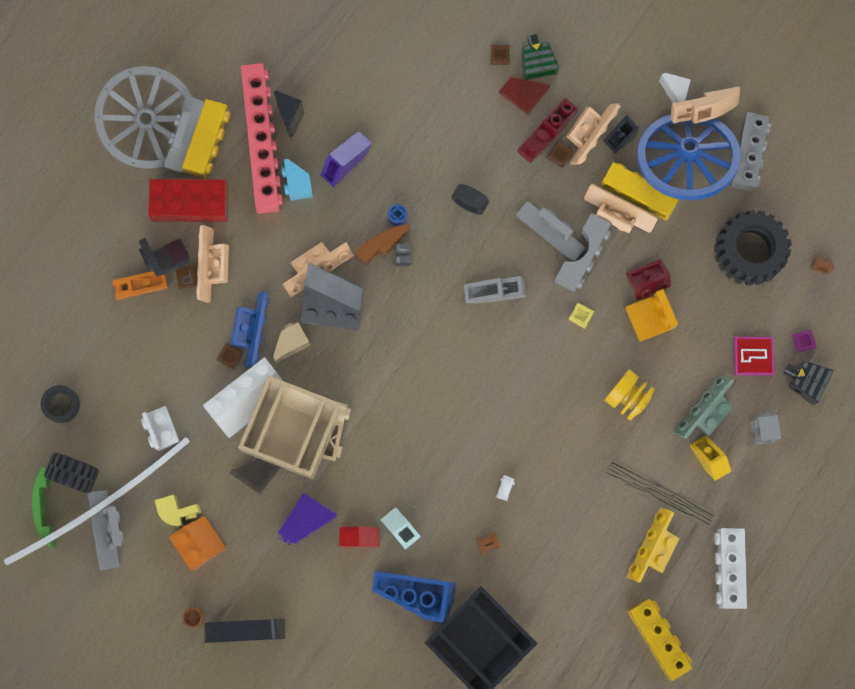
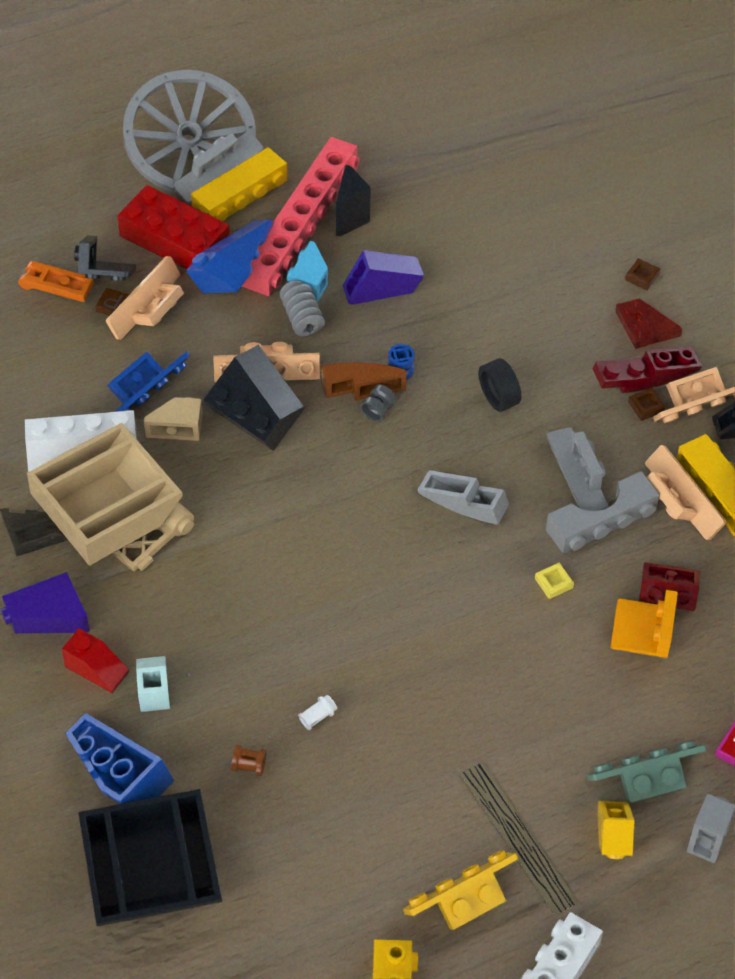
camera: 35 degrees right, 25 degrees down
(229, 356) = (98, 400): reddish brown tile -> none
(243, 207) = (227, 263): none -> blue wedge
(310, 213) = (302, 308): none -> light grey piece
(538, 59) = (684, 297): dark green torso -> none
(630, 395) = (552, 688): yellow wheel -> none

